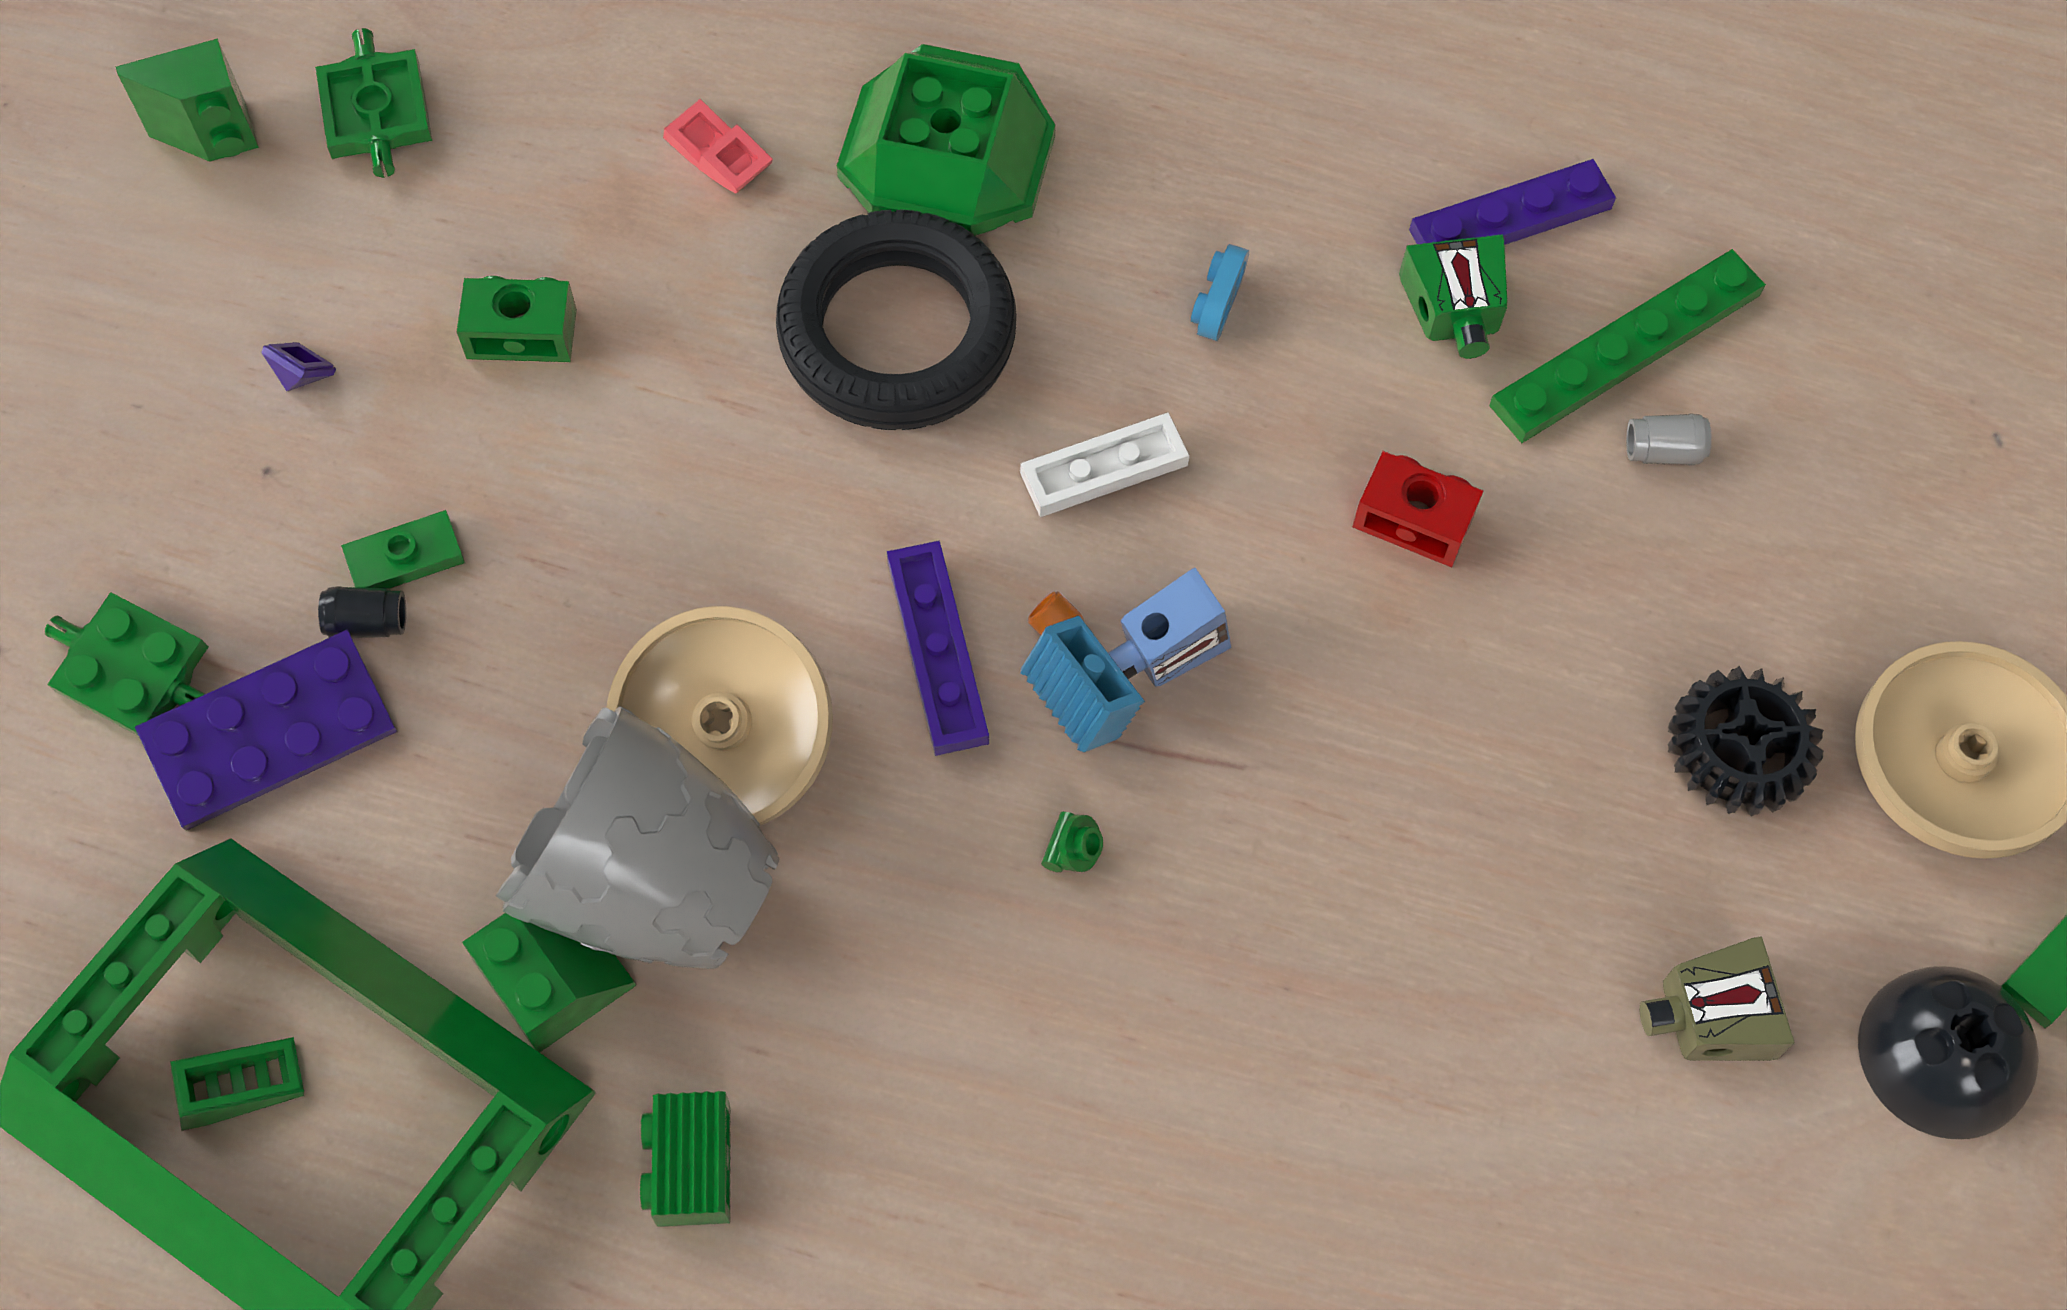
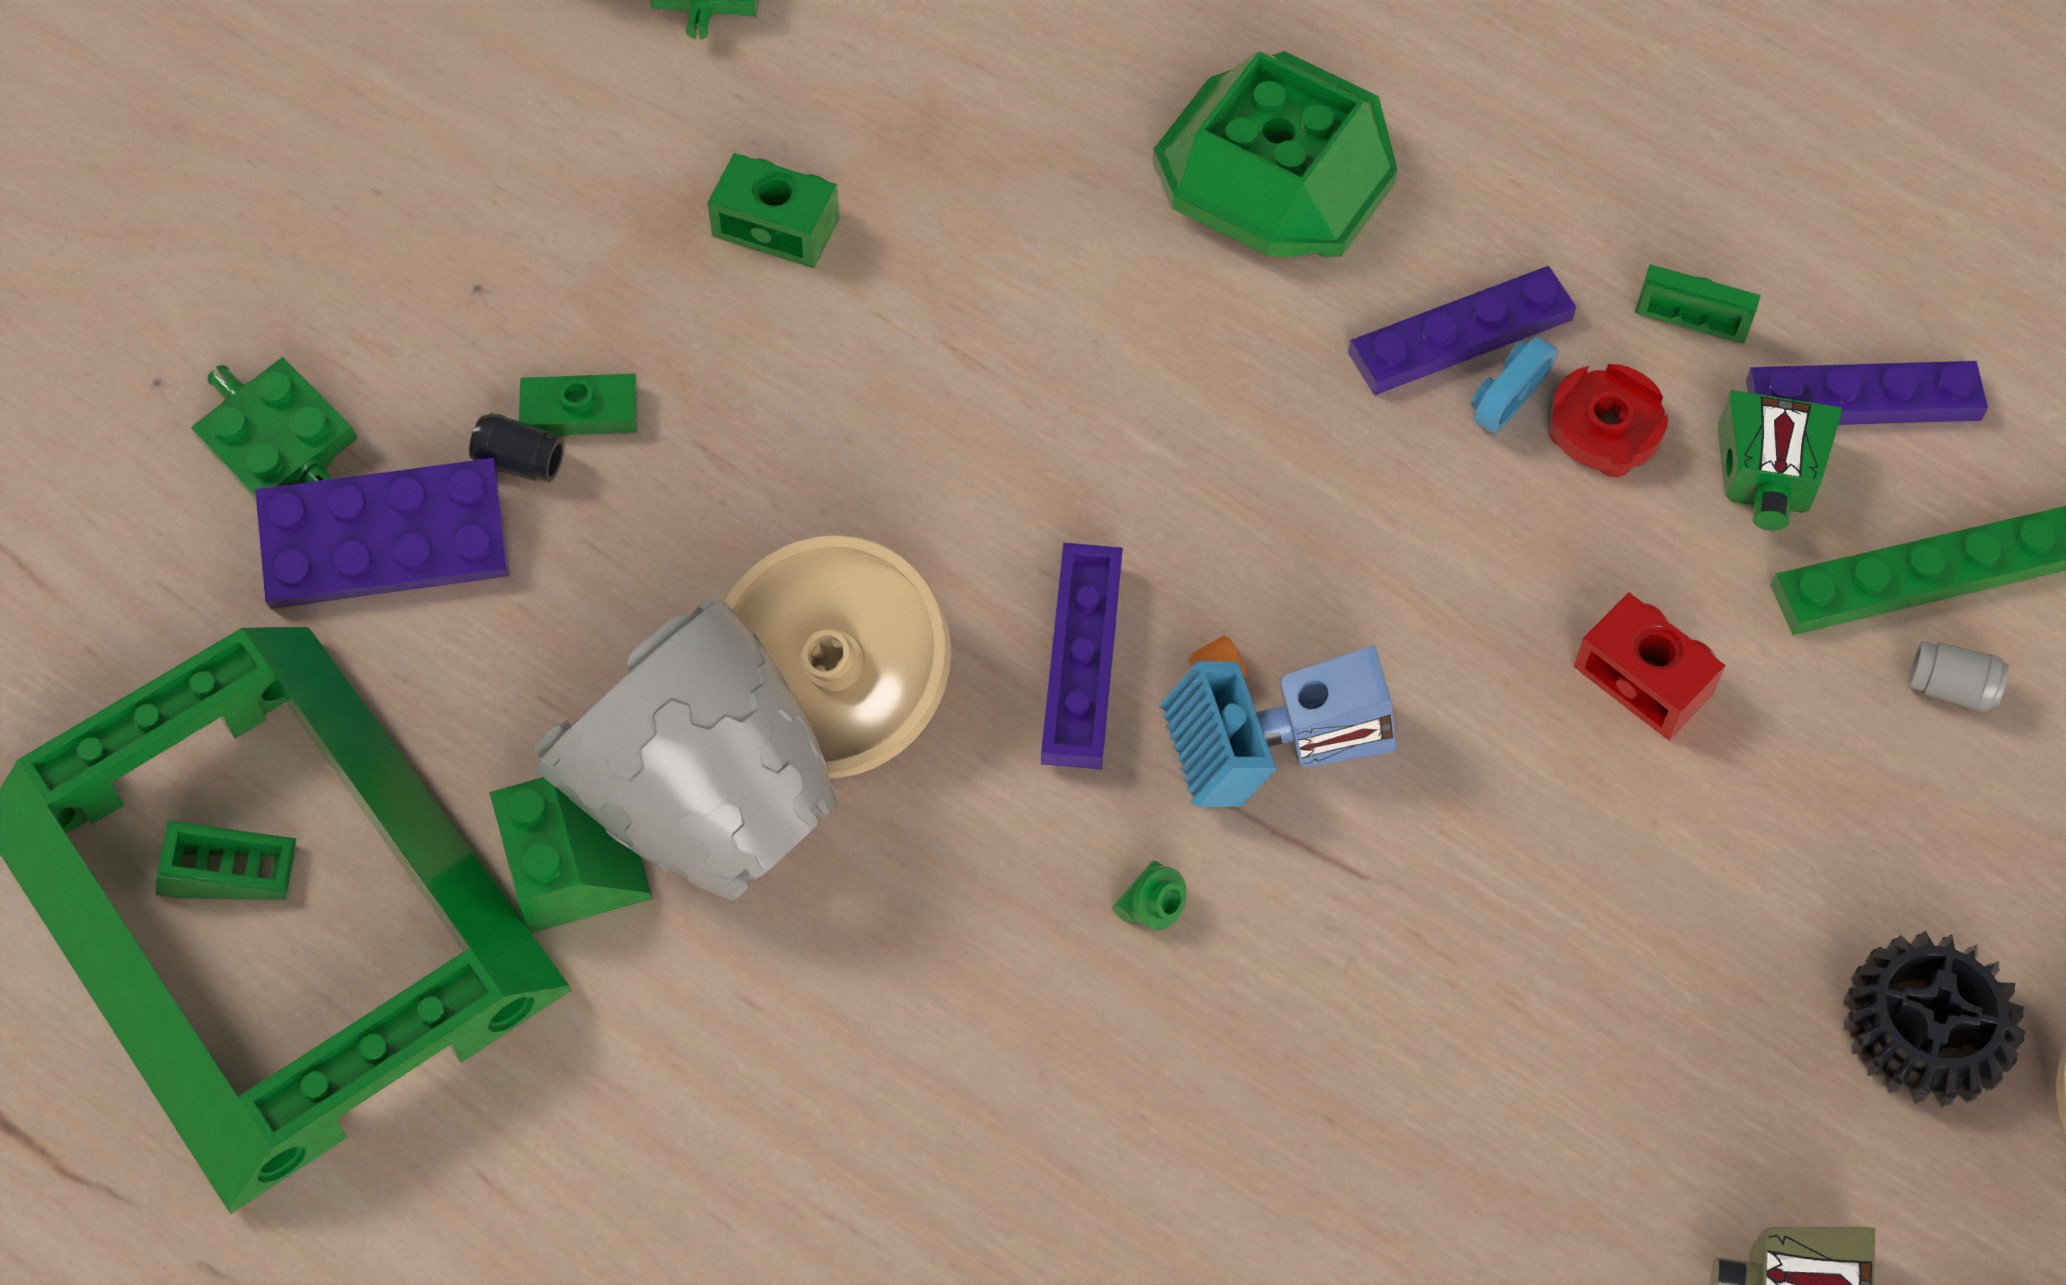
camera: 20 degrees right, 5 degrees down
(296, 364) = (542, 193): slope -> none
(689, 1159) = (638, 1084): green brick -> none
(715, 148) = (1036, 99): coral slope -> none
(896, 240) = (1154, 398): black tyre -> none
(1104, 464) = (1325, 523): white plate -> none
(1158, 255) = (1461, 330): none -> dark purple plate
(1306, 324) = (1602, 445): none -> red plate
(1350, 174) = (1697, 304): none -> green plate

